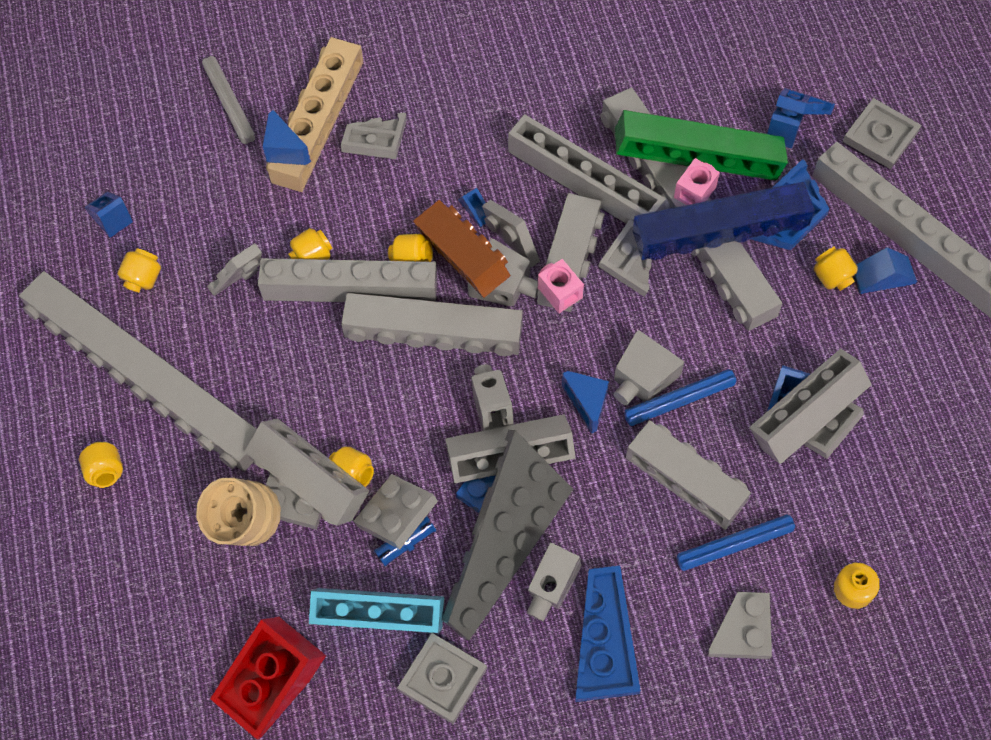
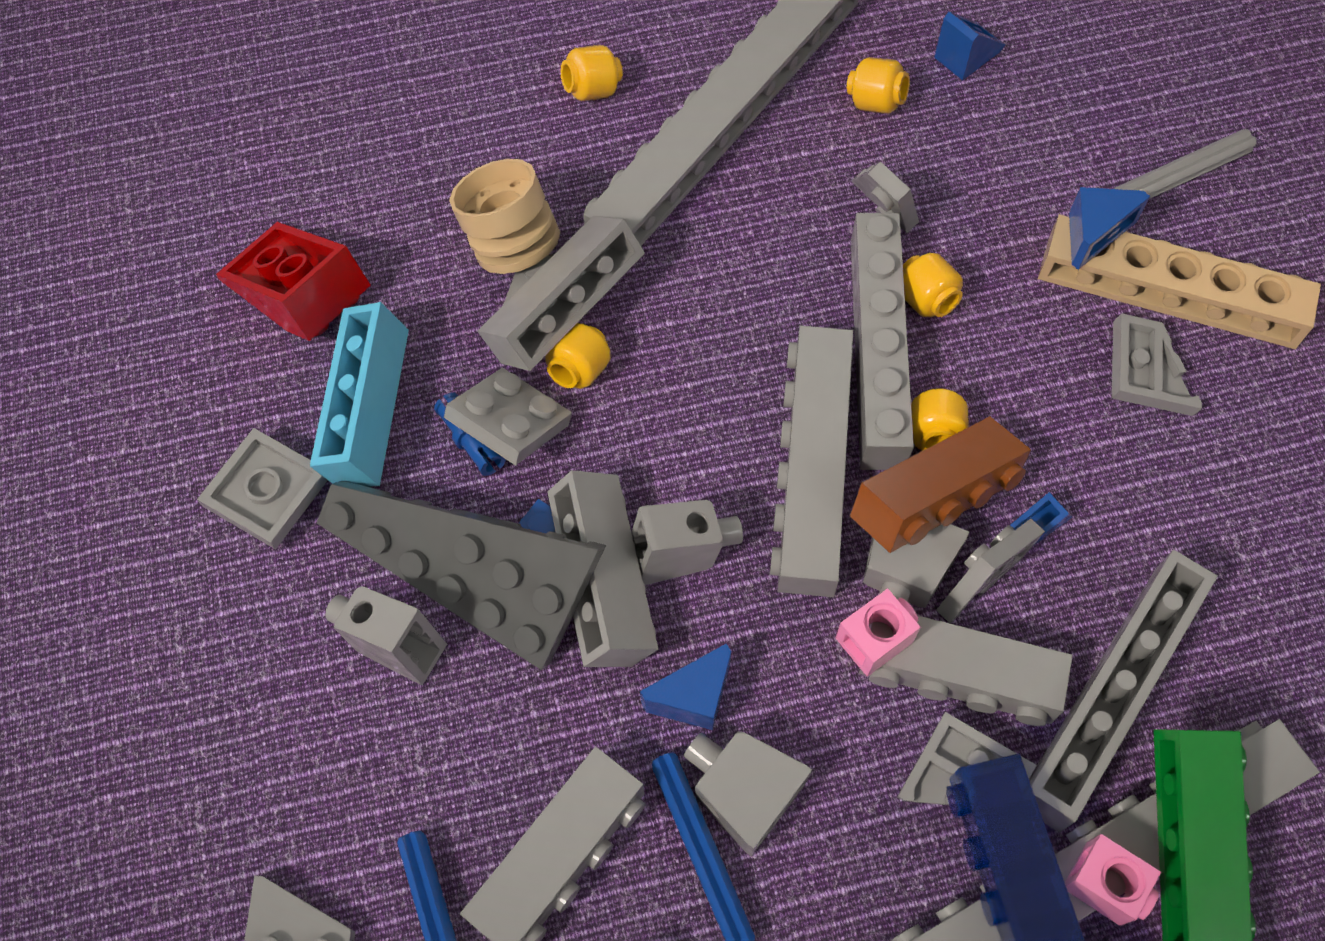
camera: 90 degrees right, 0 degrees up
(607, 648) = (281, 716): blue wing -> none

